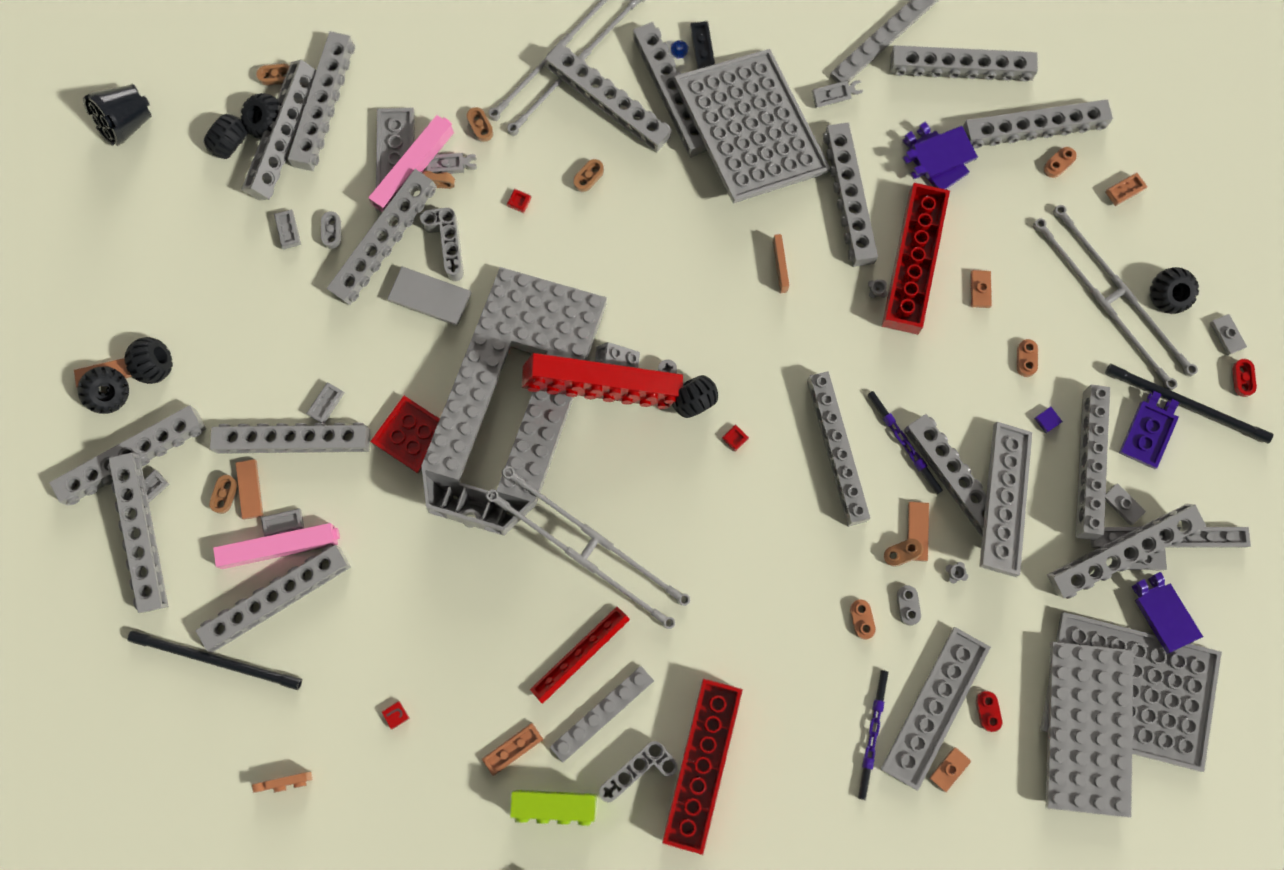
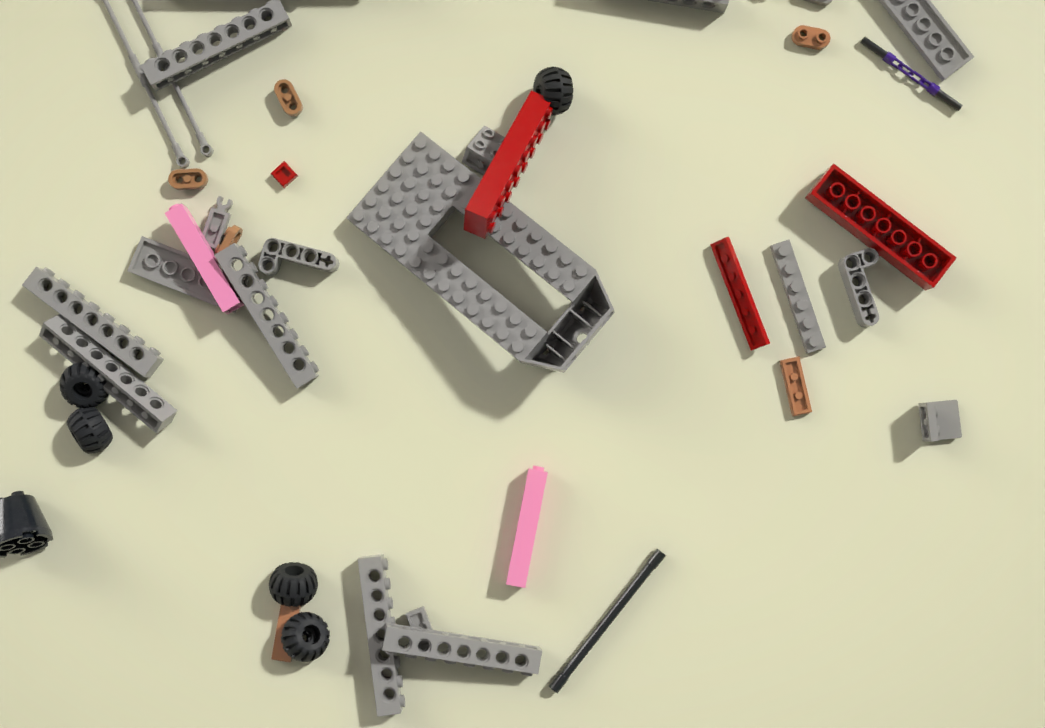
camera: 70 degrees left, 10 degrees up
(208, 631) = (589, 615): light grey brick -> none
(221, 494) = (456, 558): medium nougat plate -> none
(249, 489) = (460, 533): nougat tile -> none
(274, 71) = (41, 356): medium nougat plate -> none
(280, 784) = (743, 599): nougat plate -> none
(282, 522) = (505, 514): light grey tile -> none
(287, 229) = (216, 405): light grey plate -> none
(325, 403) = (408, 432): light grey plate -> none
(331, 231) = (236, 363): light grey plate -> none
(358, 443) = (407, 543): light grey brick -> none
(395, 715) = (723, 476): red tile -> none
(407, 433) = (473, 365): red plate -> none
(429, 296) = (344, 296): light grey tile -> none
(553, 806) = (863, 367): lime brick -> none
(595, 539) = (650, 232): light grey bar -> none
(665, 364) = (513, 111): light grey wheel -> none
(735, 438) = (602, 74): red tile -> none
(950, 769) = (966, 23): nougat plate -> none

